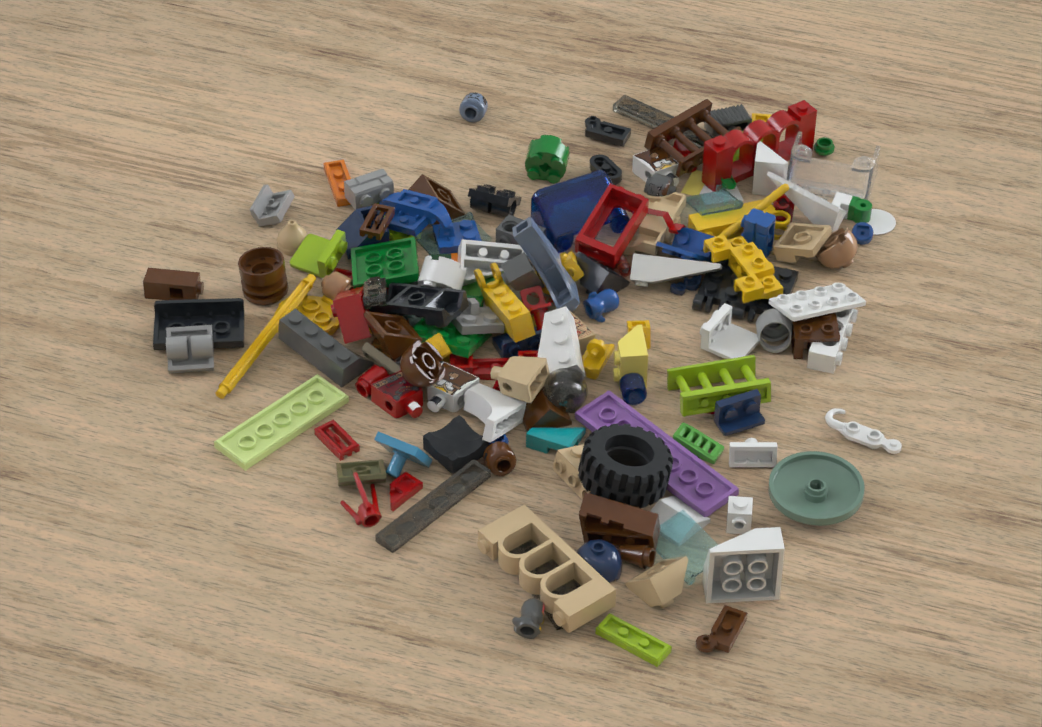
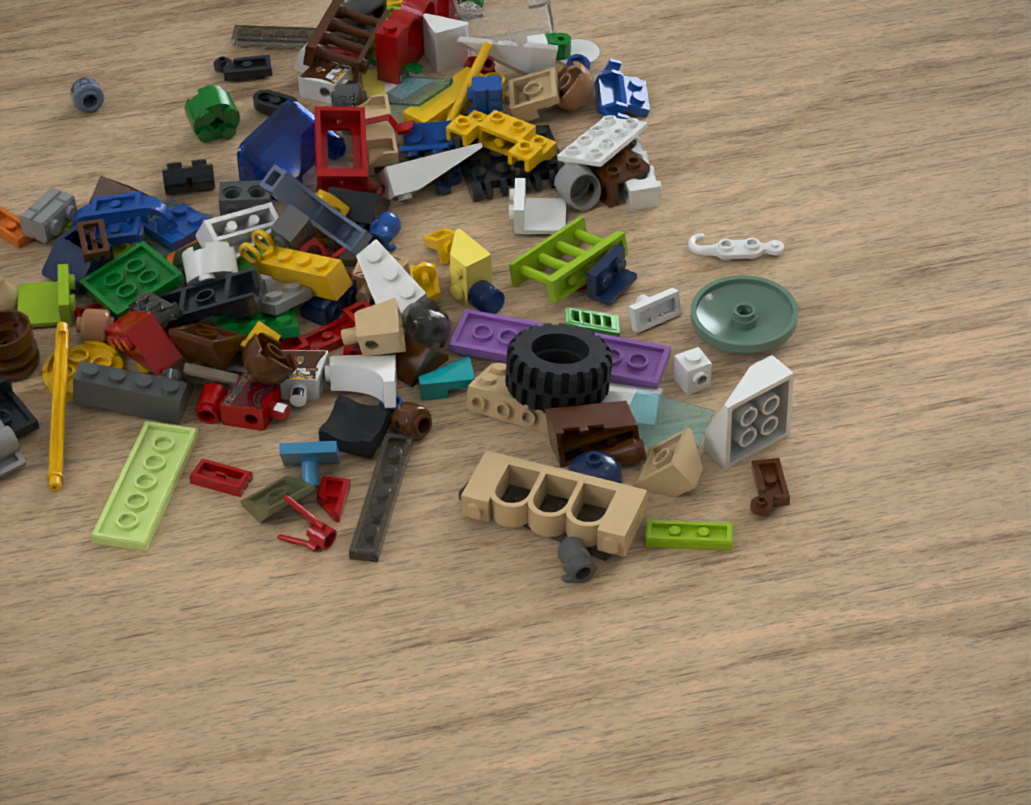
camera: 30 degrees left, 0 degrees up
(356, 347) = (173, 374): none -> dark grey piece
(875, 269) = (620, 93): none -> blue plate

